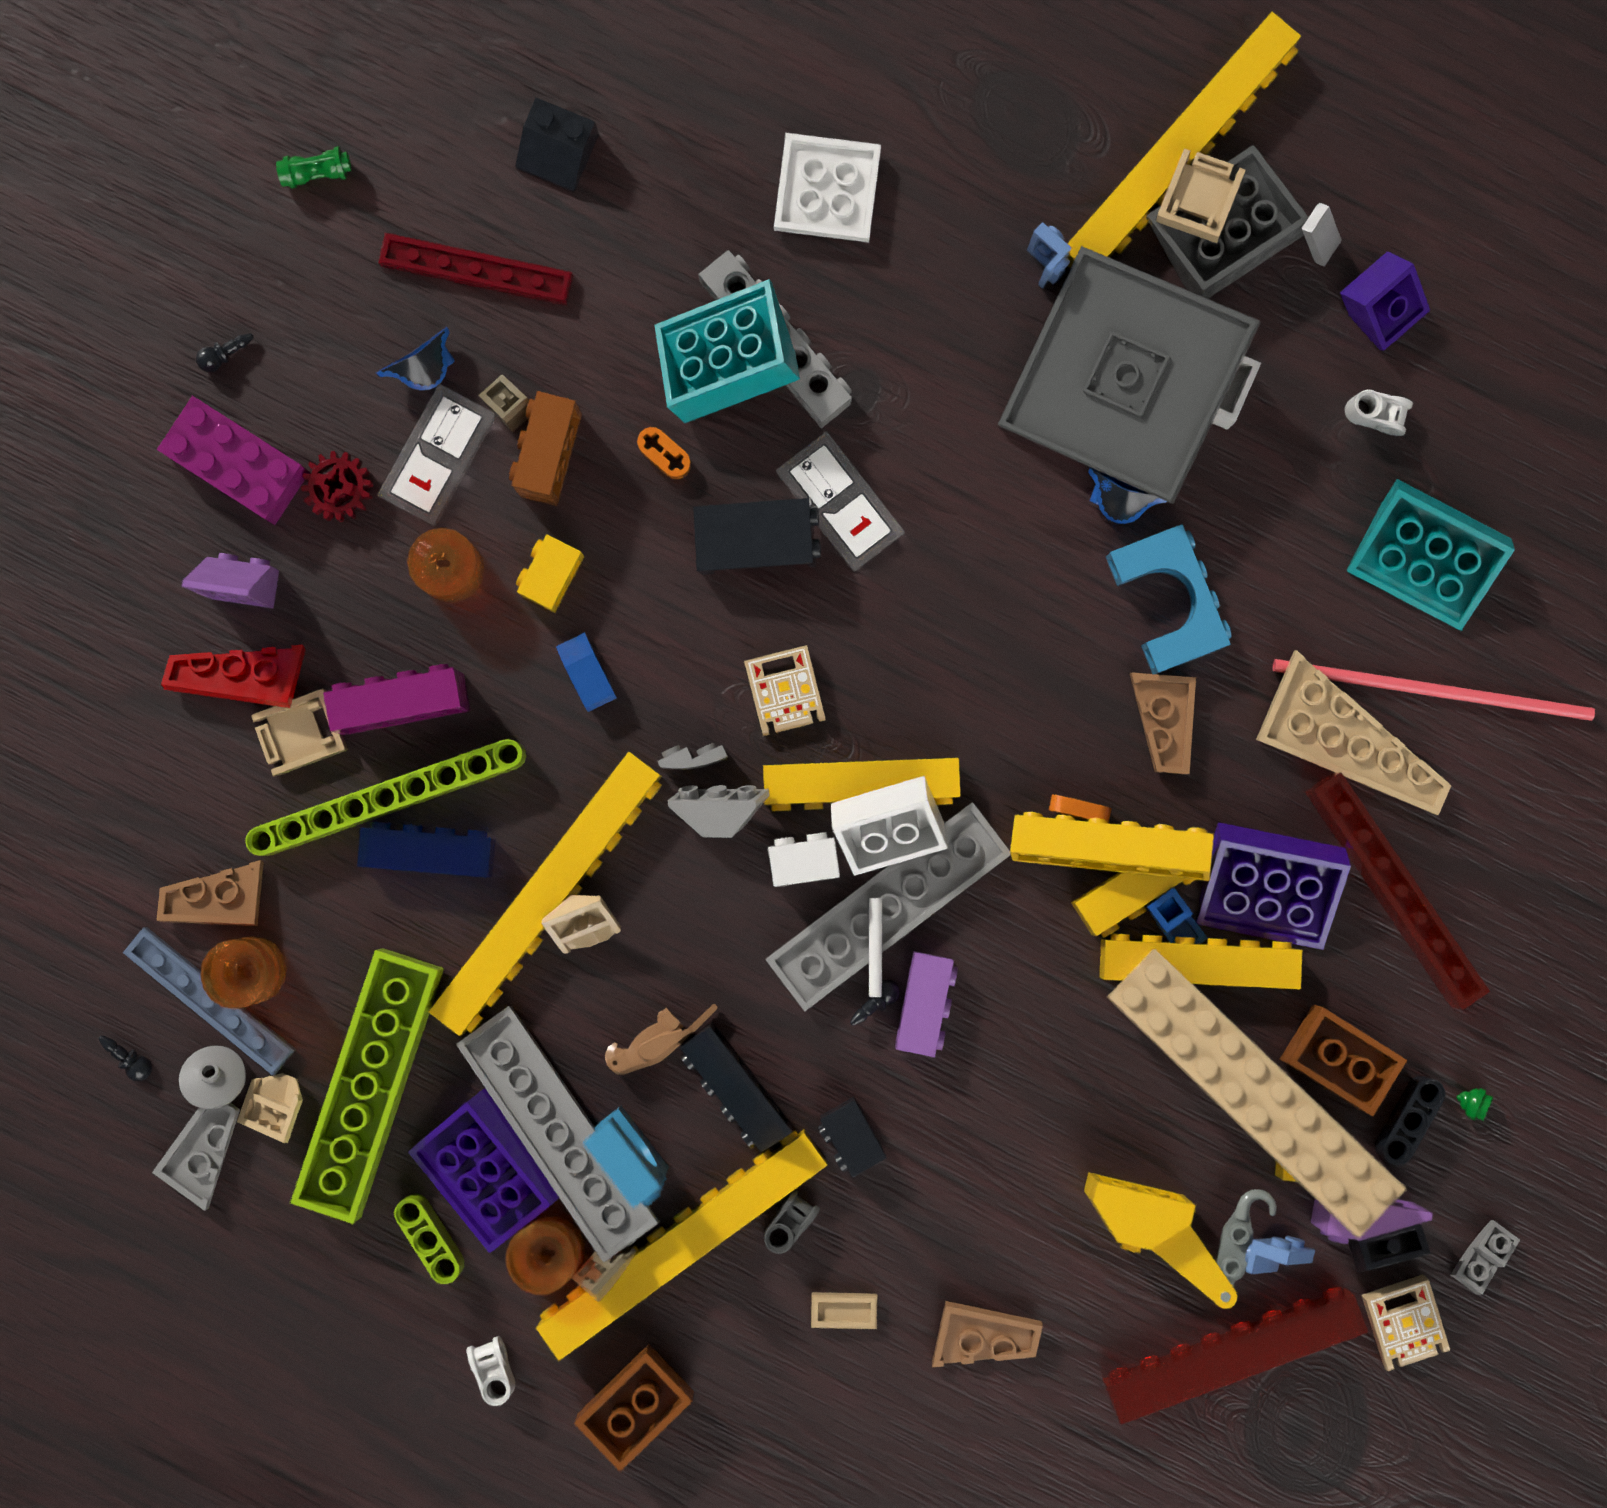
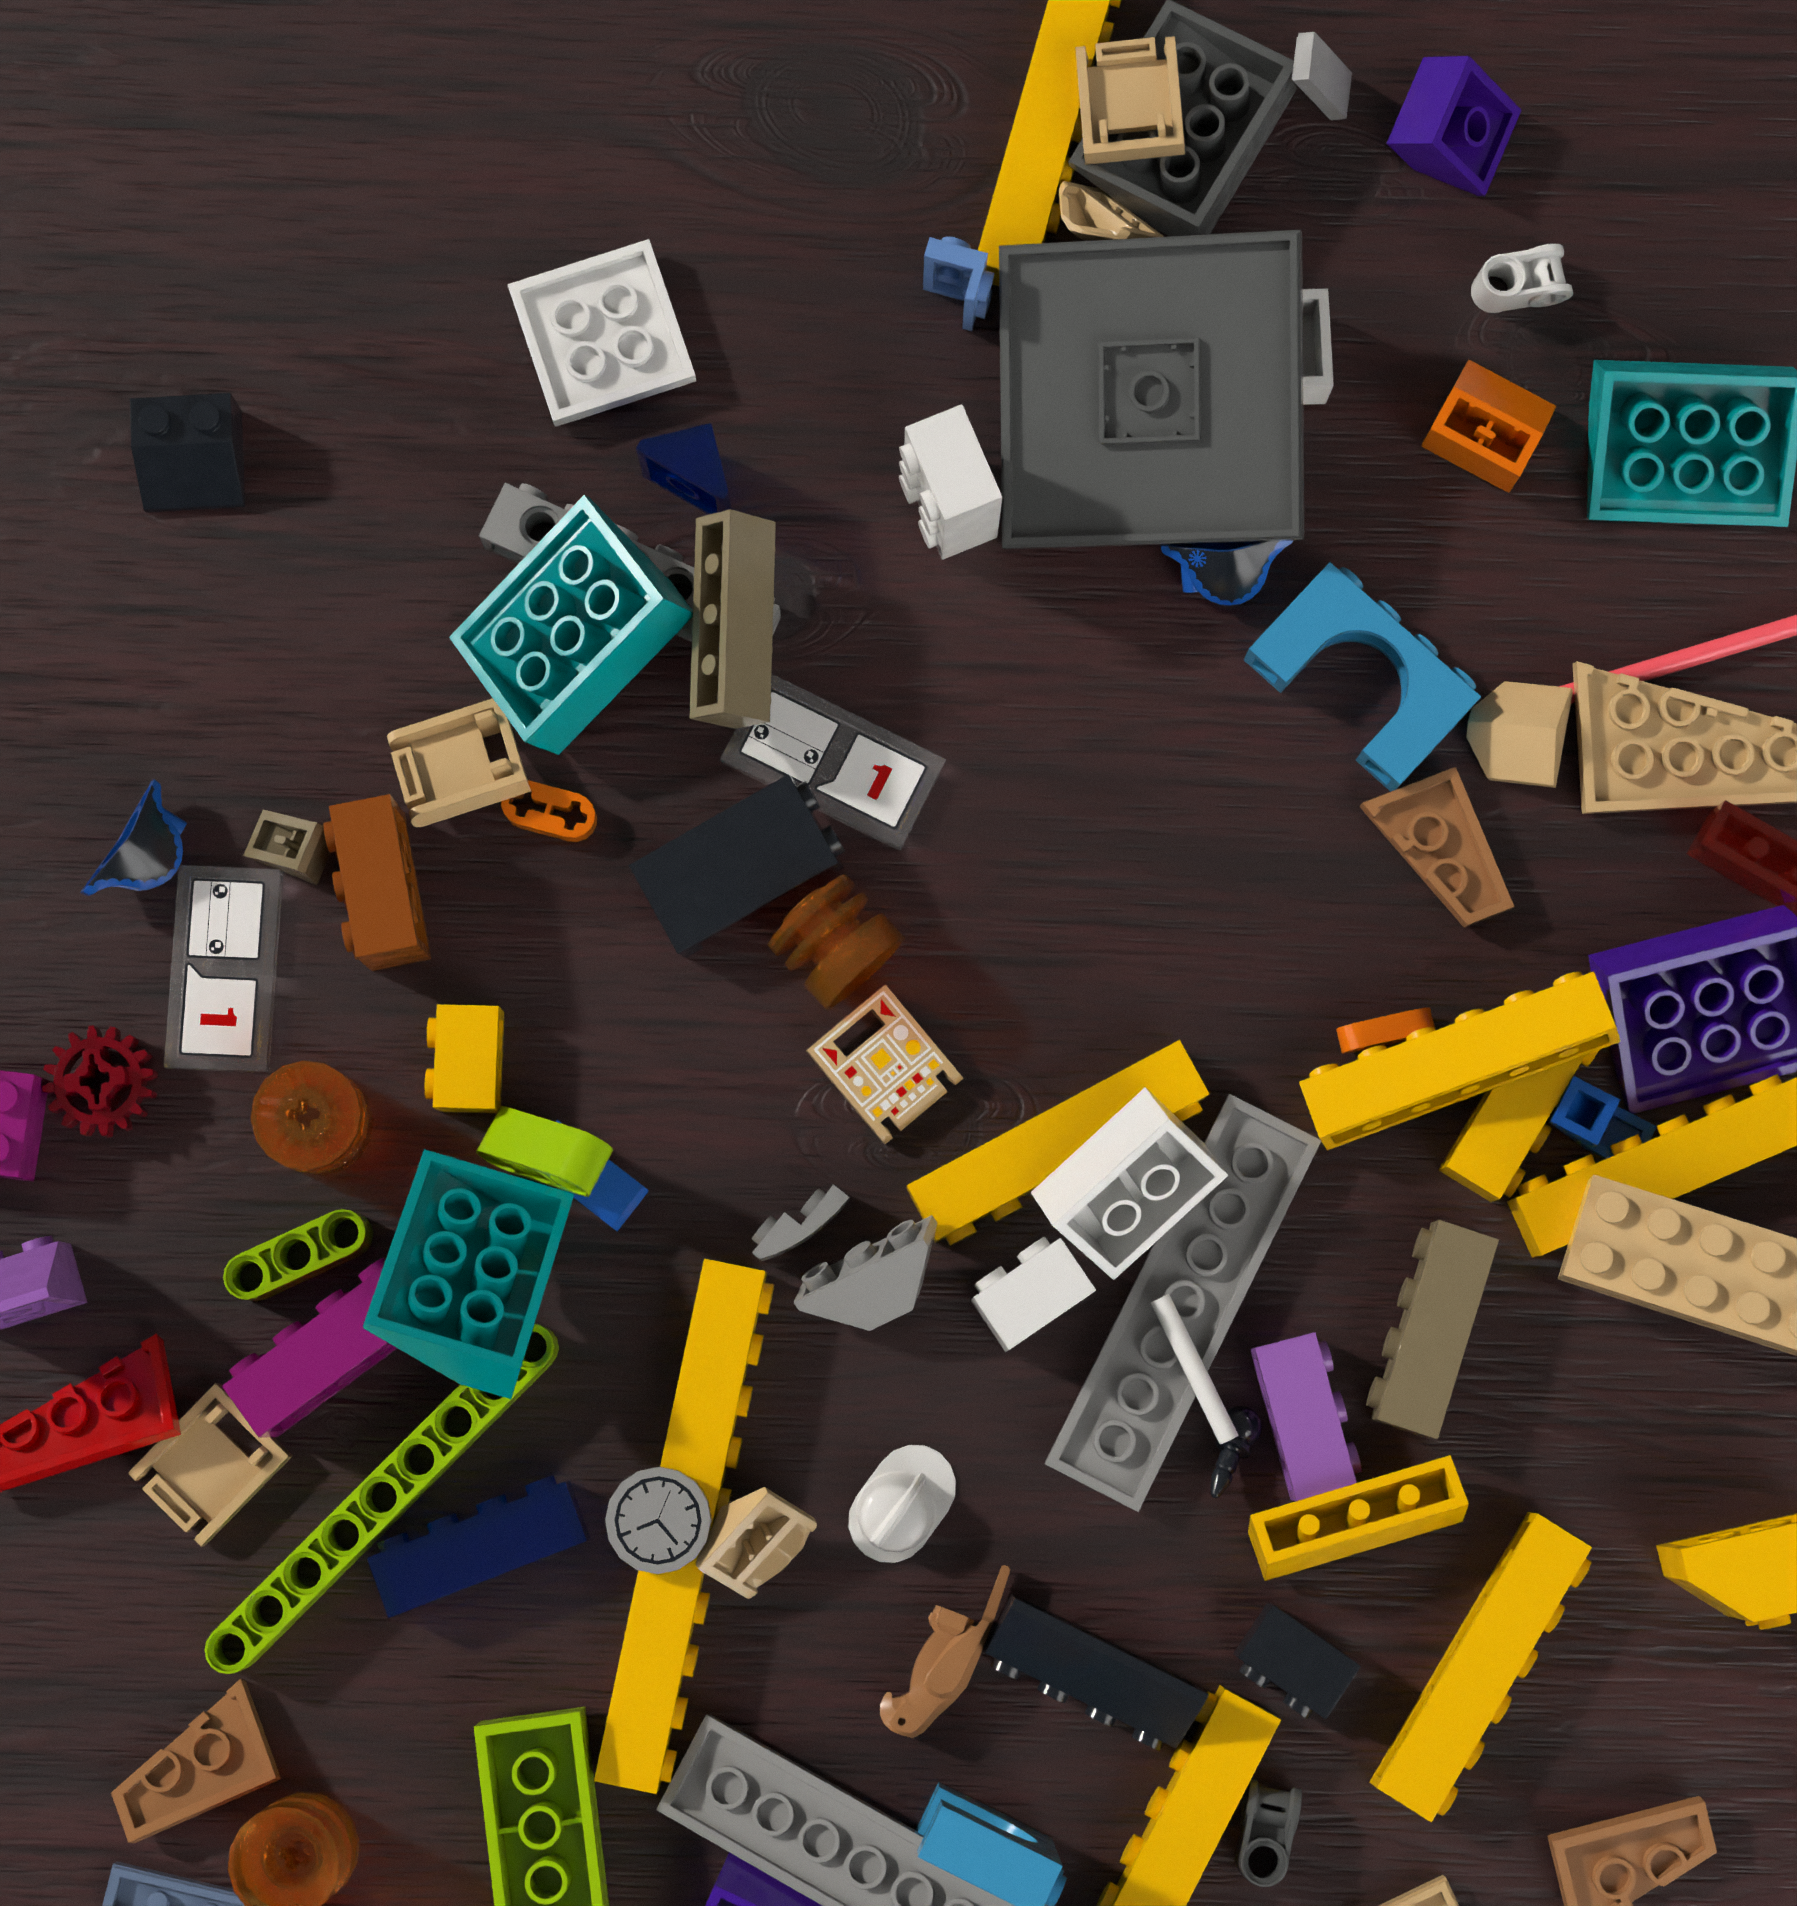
camera: 25 degrees left, 5 degrees down
(387, 636) = (273, 1260): none -> lime beam
(475, 269) = (154, 679): dark red tile -> none
(491, 694) = (468, 1271): none -> teal slope
(532, 885) = (658, 1520): none -> light grey tile
(567, 647) = (544, 1151): none -> lime beam
(620, 400) = (450, 764): none -> tan container
(675, 942) = (902, 1503): none -> white piece
(789, 607) = (835, 941): none -> clear orange wheel
(819, 392) = (737, 625): none -> dark tan brick
(839, 291) = (687, 467): none -> clear blue slope
(926, 1075) = (1357, 1518): none -> yellow brick
(954, 1191) = (1481, 1667): none -> yellow brick
(983, 372) = (950, 482): none -> white brick
(1022, 990) = (1433, 1328): none -> dark tan brick
(1149, 256) = (1098, 216): none -> tan slope
(1244, 675) = (1520, 732): none -> tan slope
(1315, 488) = (1489, 426): none -> orange slope

